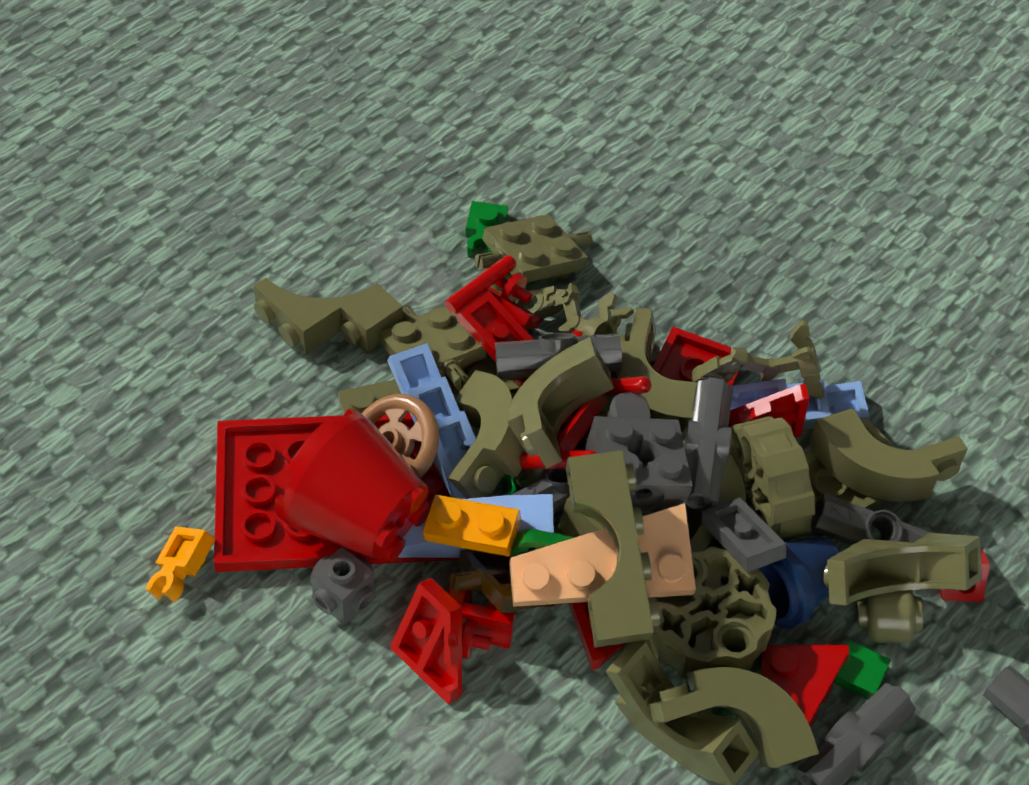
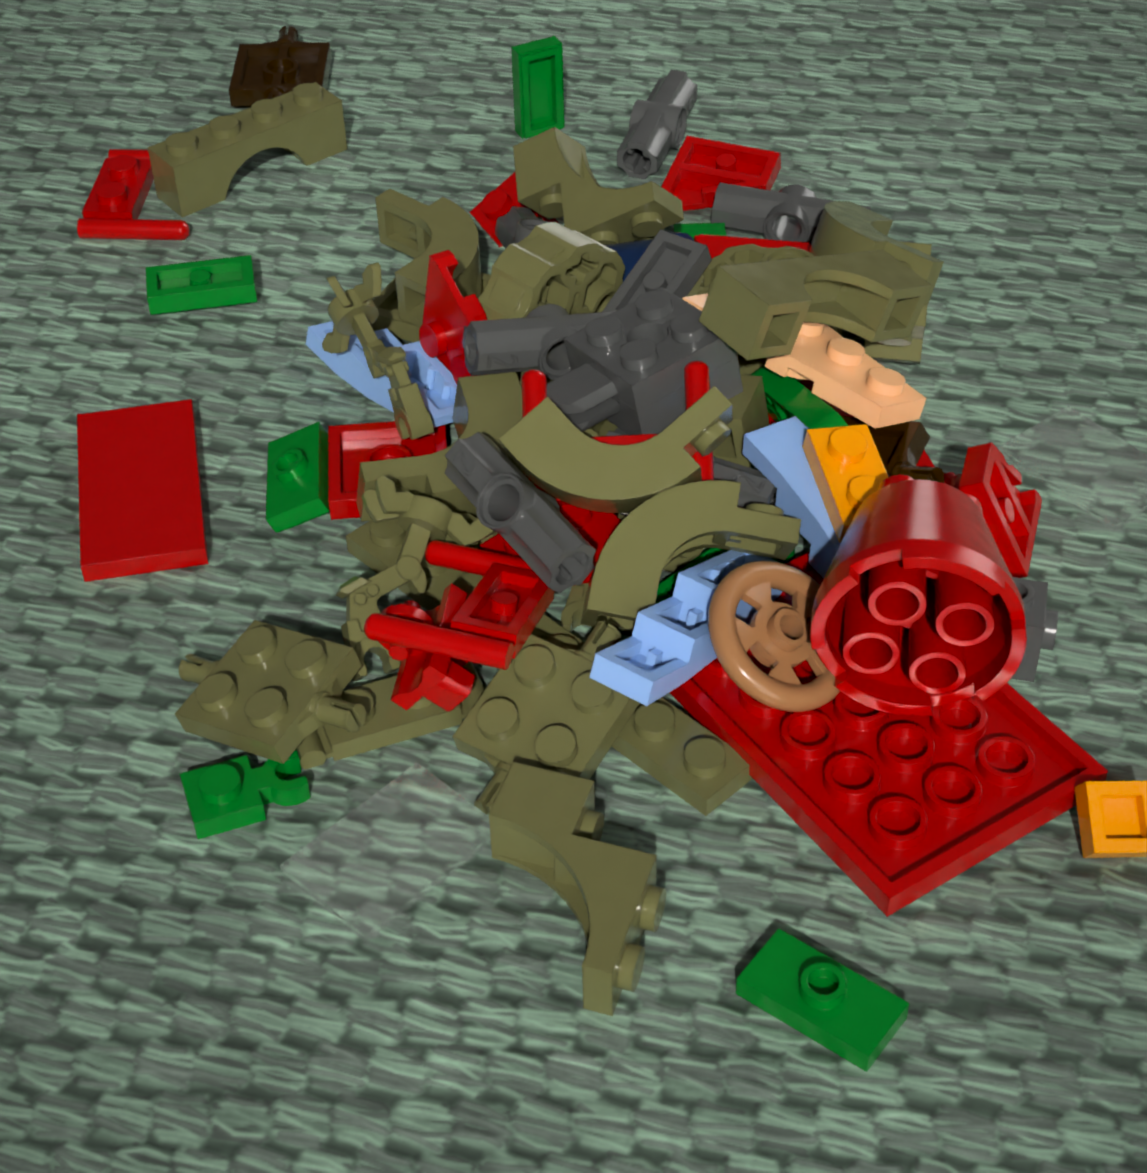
camera: 115 degrees left, 10 degrees down
(198, 379) = (822, 999): none -> green plate
(715, 327) = (297, 477): none -> green plate
(755, 265) = (139, 491): none -> red tile
(950, 728) = (706, 163): none -> red wing
(954, 354) = (200, 284): none -> green plate

